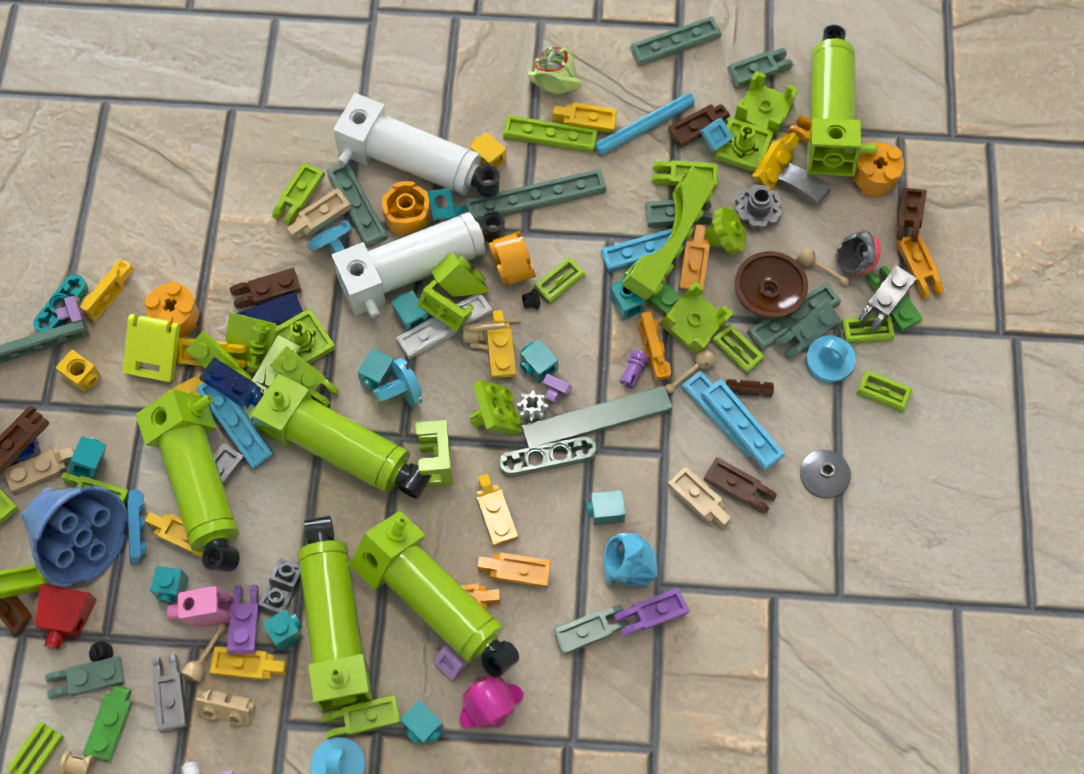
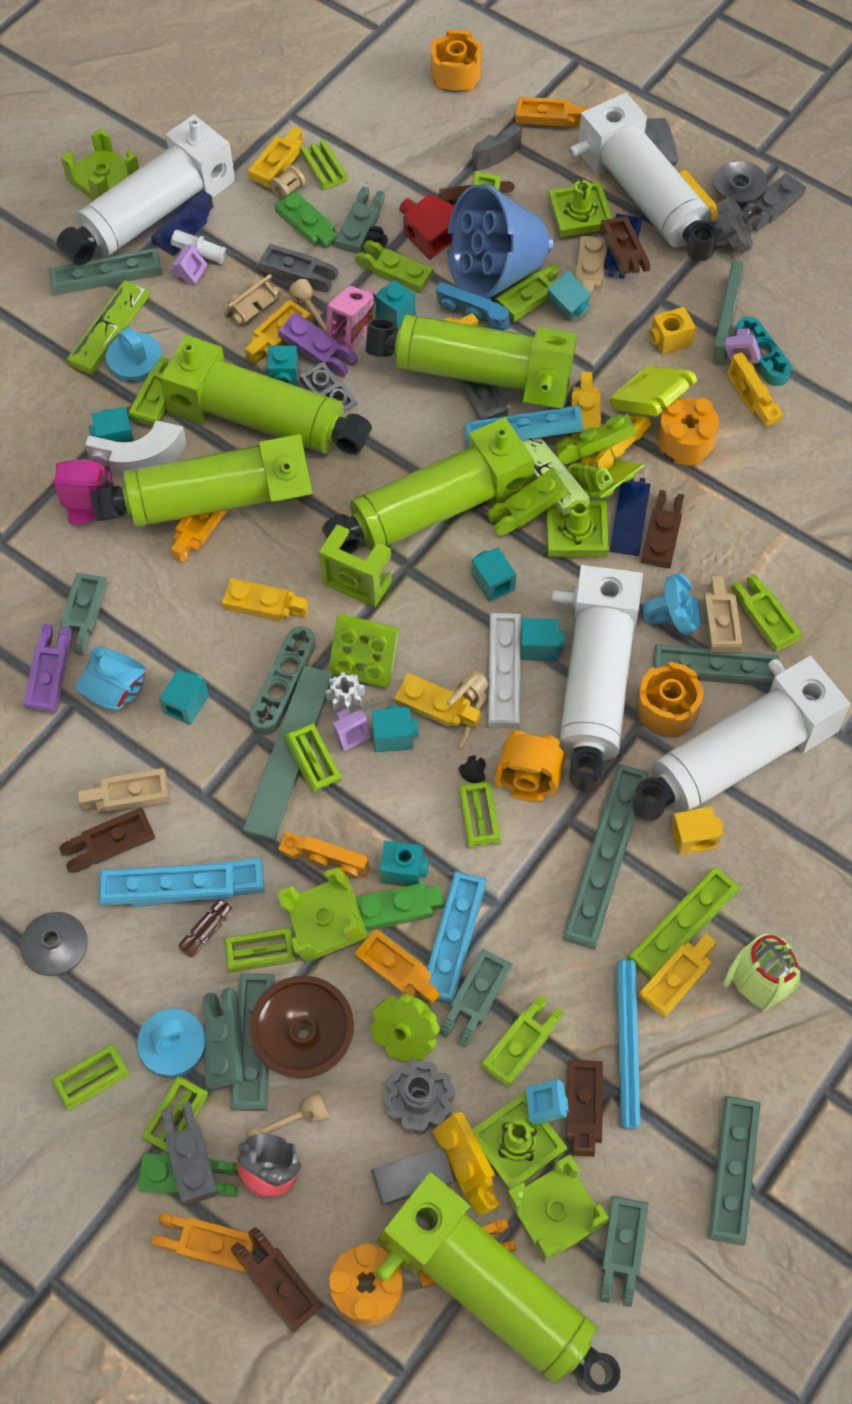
camera: 125 degrees right, 5 degrees down
(122, 616) = (394, 266): none -> lime hinge
(231, 383) = (559, 429): clear blue hinge -> none
(404, 383) = (454, 577): medium azure tile -> none
(422, 675) = (159, 446): none -> white arch
(443, 308) = (516, 665): lime hinge -> none
(447, 212) = (637, 738): teal bracket -> none
(458, 278) = (542, 699): lime slope -> none
(516, 569) = (189, 583): light orange hinge -> none
(593, 413) = (313, 784): none -> lime tile
(636, 363) = (318, 824): medium lavender pin -> none
(689, 196) = (407, 884): lime arch -> none
(703, 359) = (268, 900): tan hinge -> none

